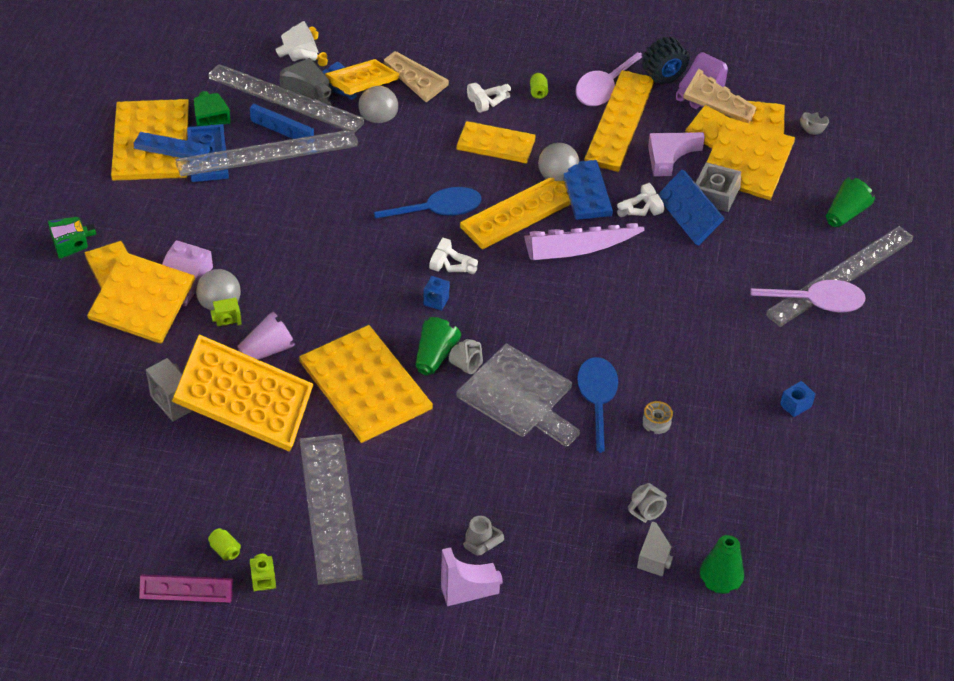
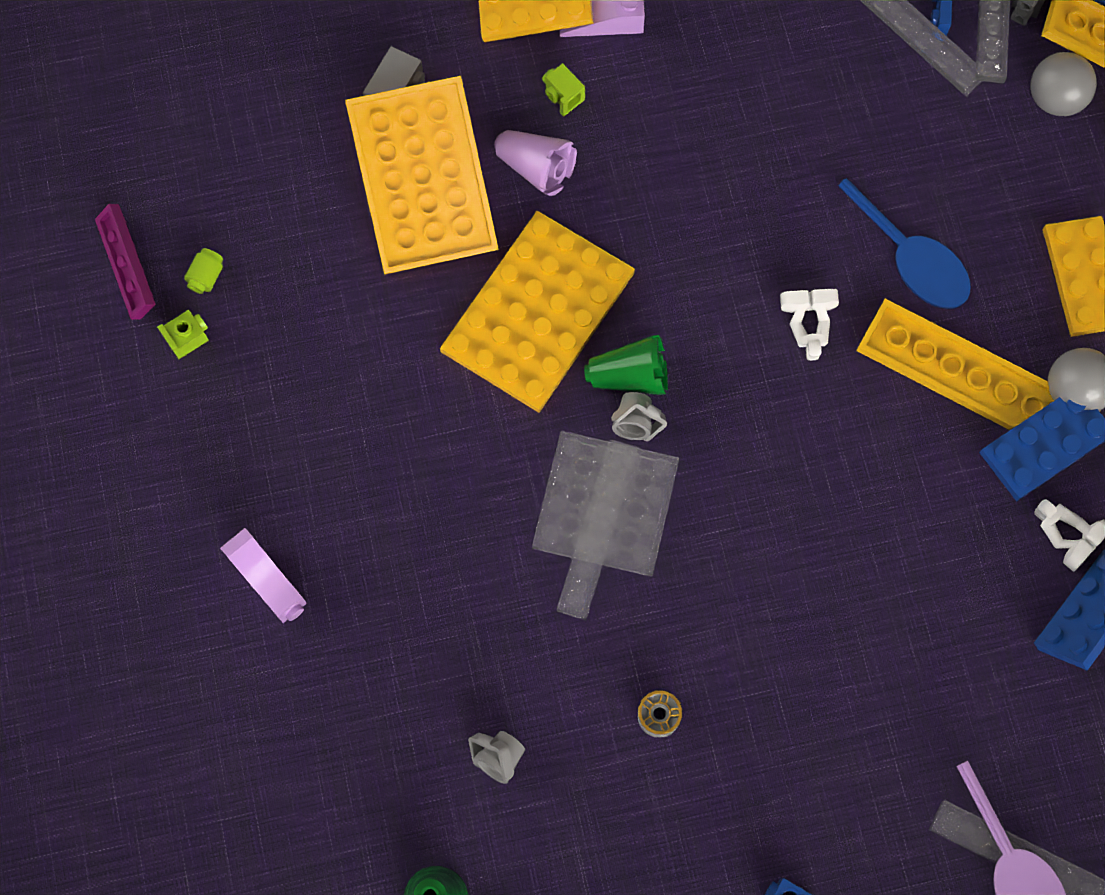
camera: 70 degrees right, 25 degrees up
(217, 286) = (599, 59): light grey piece -> none
(330, 510) = (314, 363): clear plate -> none
(436, 293) = (732, 327): blue brick -> none
(481, 537) = (352, 565): light grey piece -> none
(577, 242) = (936, 473): lavender wedge -> none
(598, 385) = (679, 612): blue piece -> none
(655, 552) = (423, 797): light grey slope -> none

